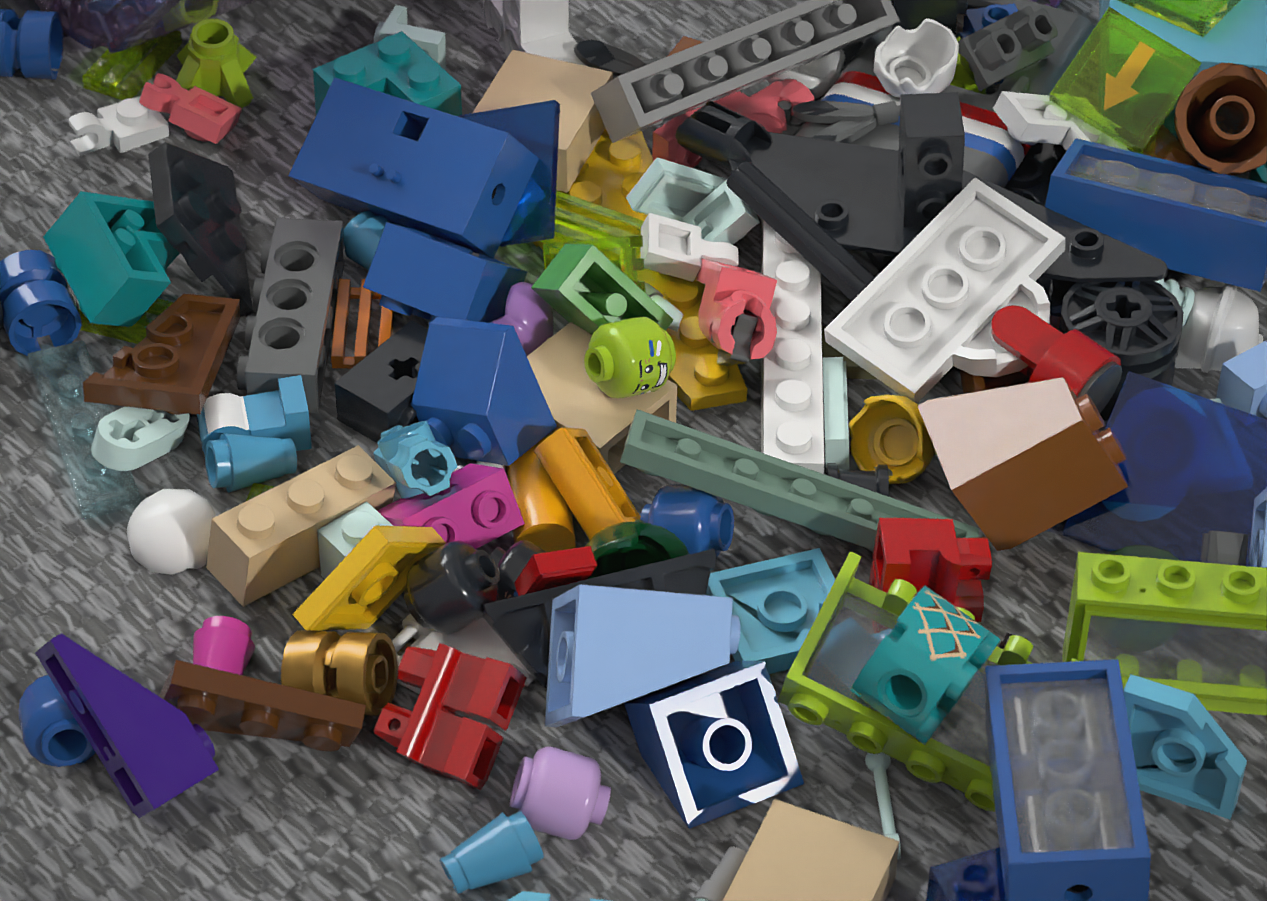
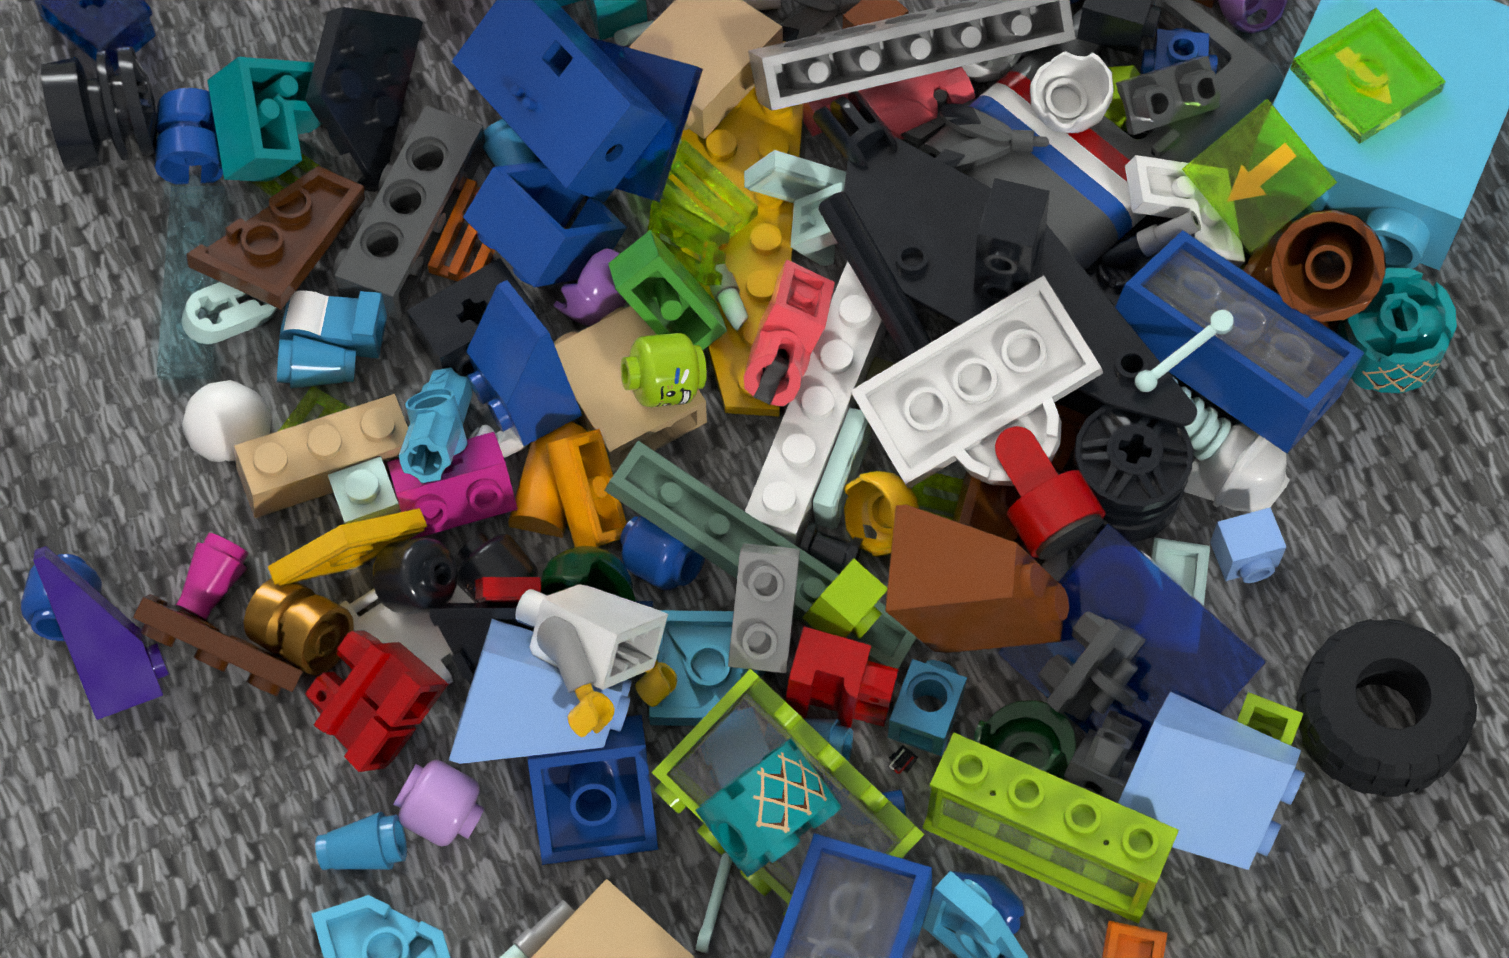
camera: 20 degrees right, 20 degrees up
(677, 248) = (768, 240): white plate -> none
(681, 560) = (598, 644): none -> white torso
(828, 514) = (764, 608): none -> light grey brick
(908, 493) = (848, 603): none -> lime plate
(1020, 587) = (922, 728): none -> dark azure brick
(1045, 161) = (1151, 240): none -> light grey piece
(1157, 180) = (1220, 323): none -> light aqua hinge
(1180, 499) = (1098, 673): none -> dark grey hips

